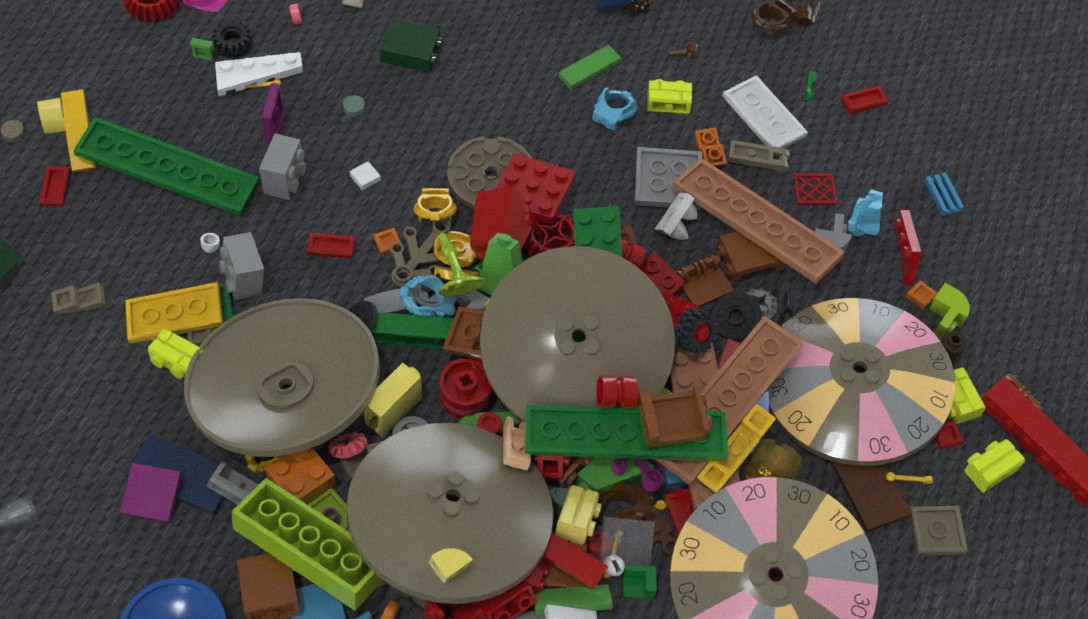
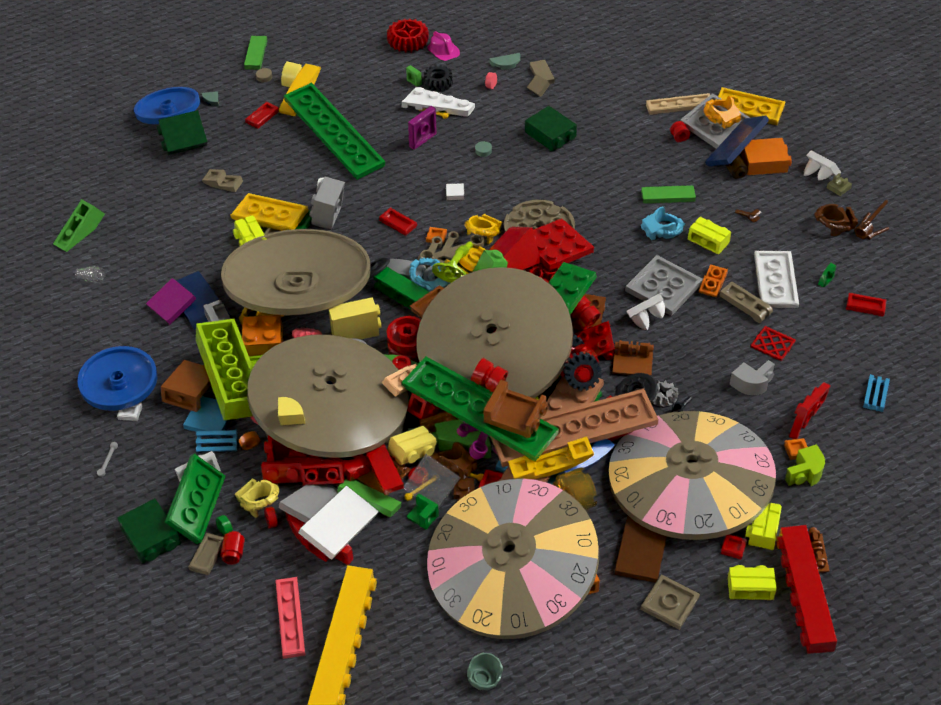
camera: 40 degrees right, 10 degrees down
(282, 167) = (401, 159): light grey brick -> none
(611, 570) = (415, 489): white hinge -> none
(744, 256) = (683, 355): dark orange panel -> none
(759, 220) = (701, 336): nougat plate -> none
(871, 209) = (802, 378): medium azure piece -> none
(926, 480) = (692, 566): yellow hinge -> none
(954, 345) = (785, 489): dark brown brick -> none

